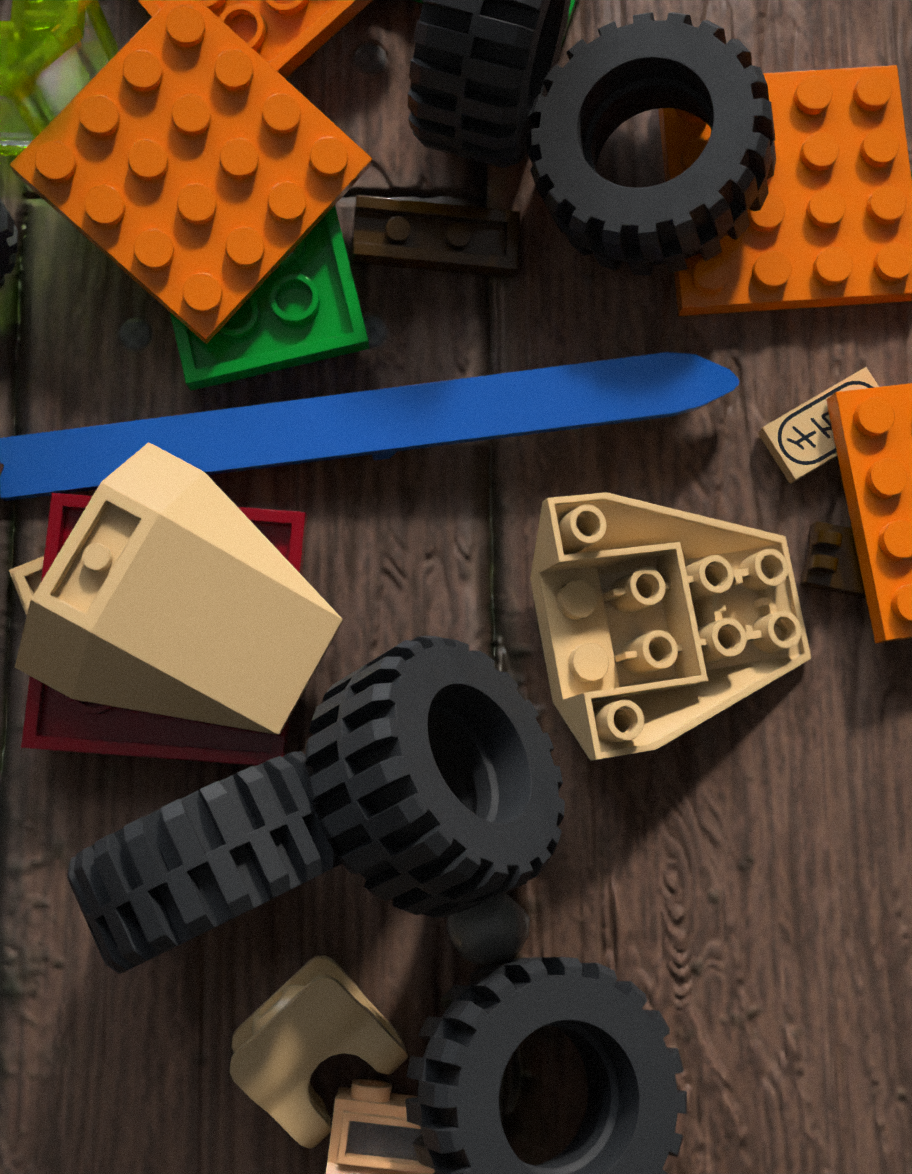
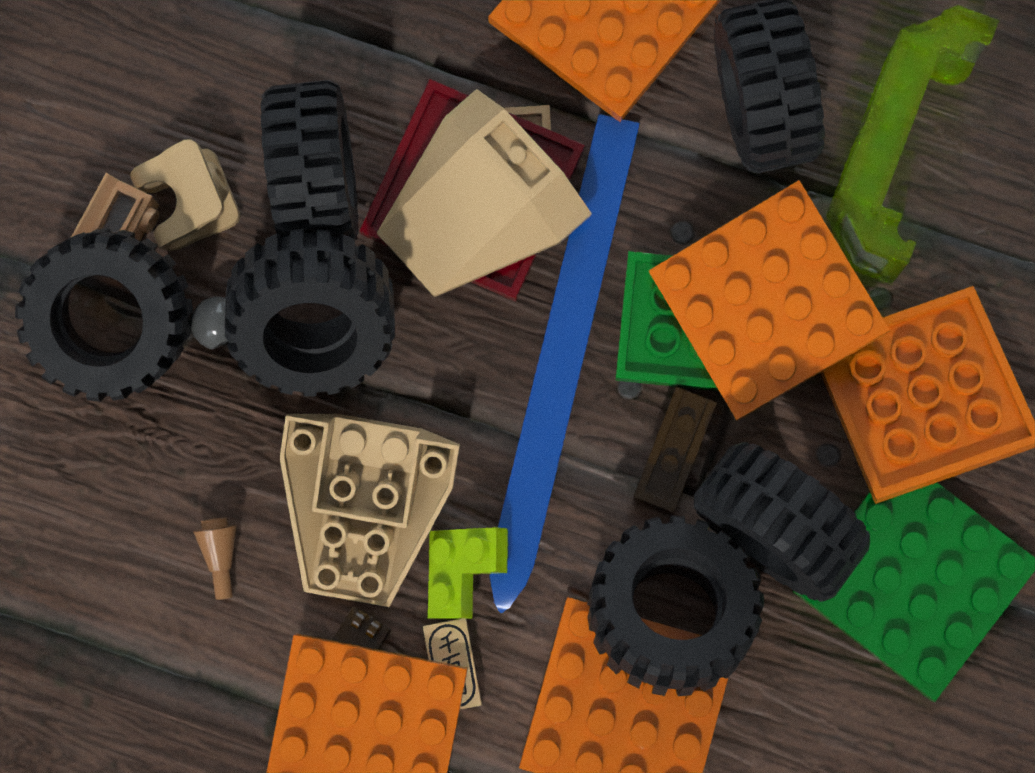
camera: 120 degrees right, 0 degrees up
(689, 460) = (454, 560): none -> lime plate
(798, 802) = (217, 546): none -> medium nougat cone

